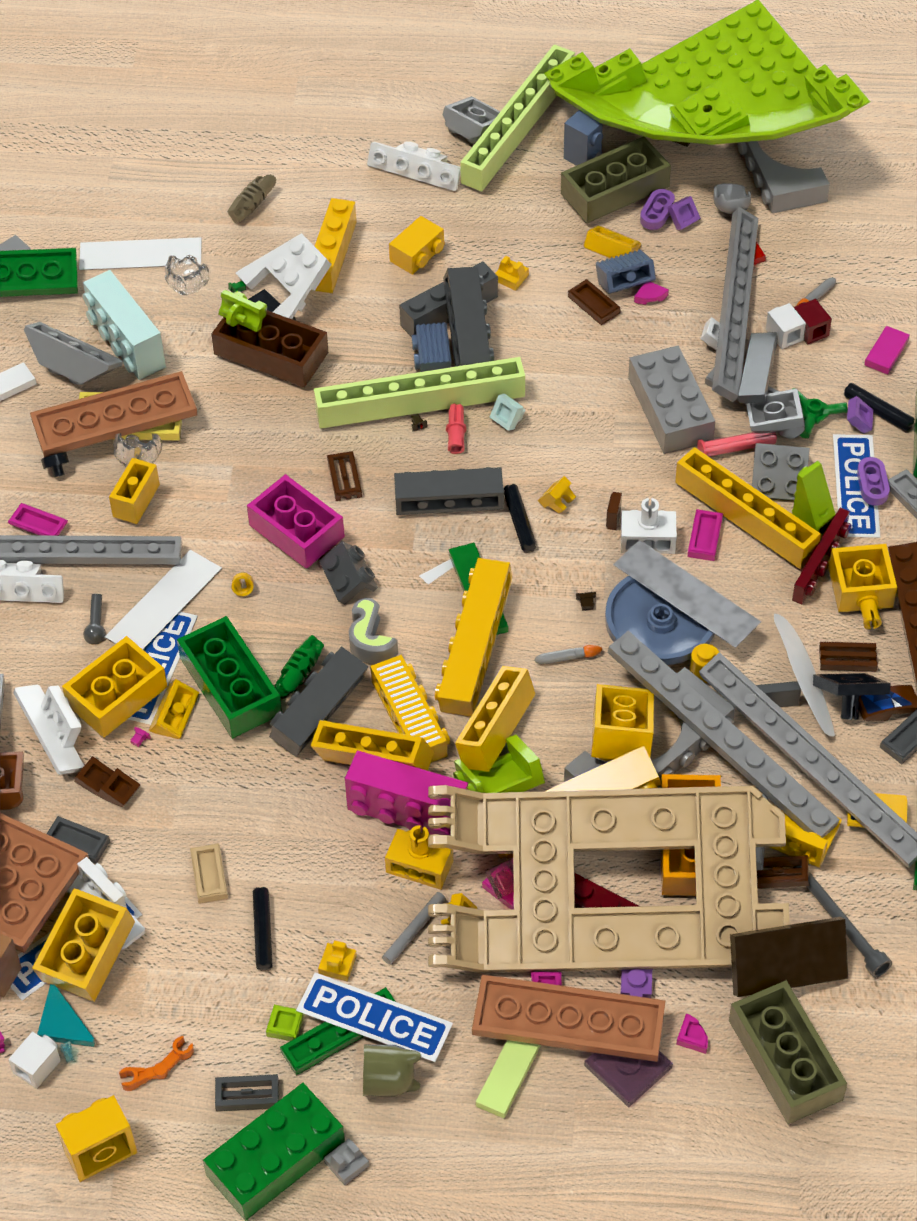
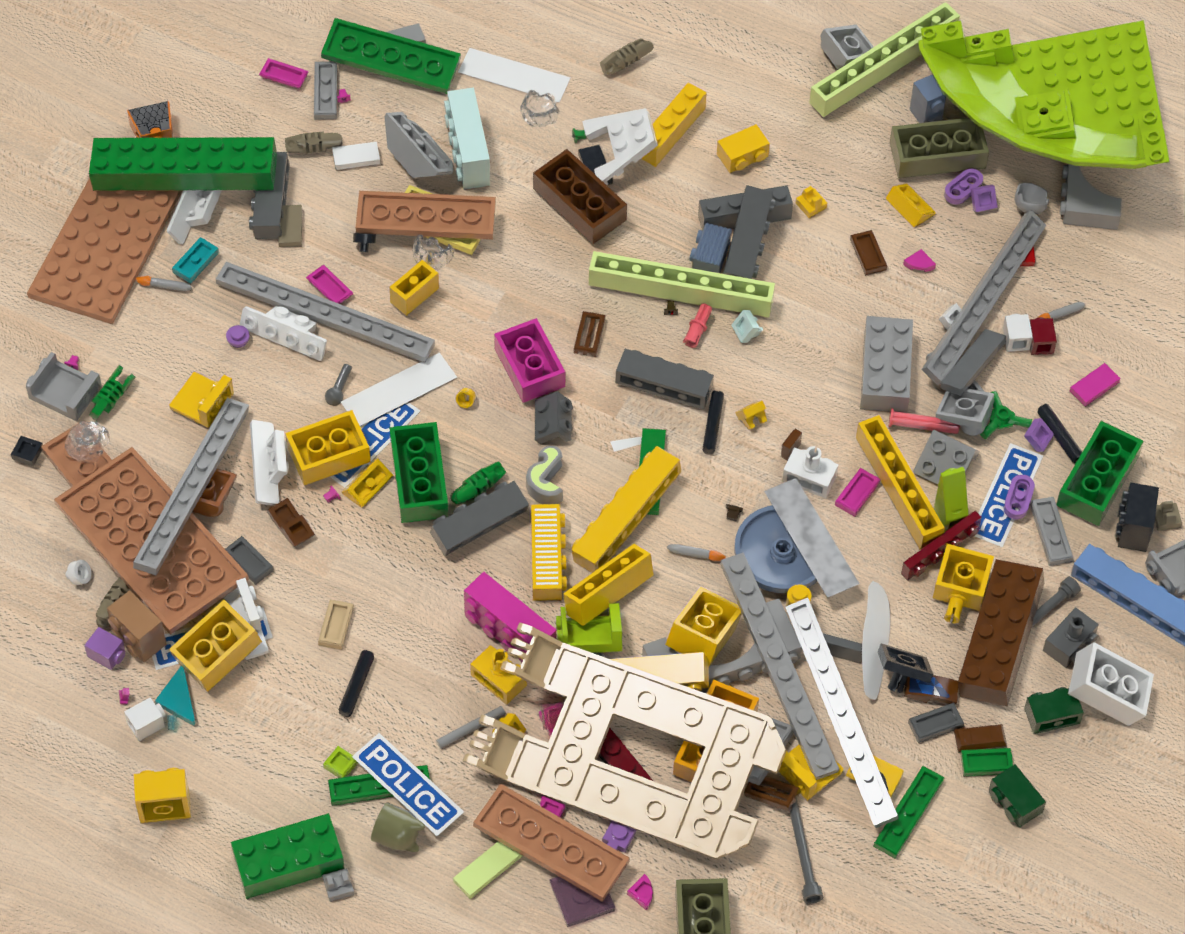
camera: 20 degrees right, 5 degrees up
(160, 1070) = (233, 762): orange piece -> none
(239, 1098) = (310, 802): dark grey tile -> none
(241, 311) = (561, 161): lime hips -> none
(337, 961) = (400, 730): yellow tile -> none
(341, 741) = (480, 558): yellow brick -> none
(415, 163) = (778, 71): white bracket -> none
(625, 271) = (906, 235): sand blue brick -> none
(794, 952) = (742, 859): dark brown tile -> none
(847, 652) = (921, 634): reddish brown tile -> none

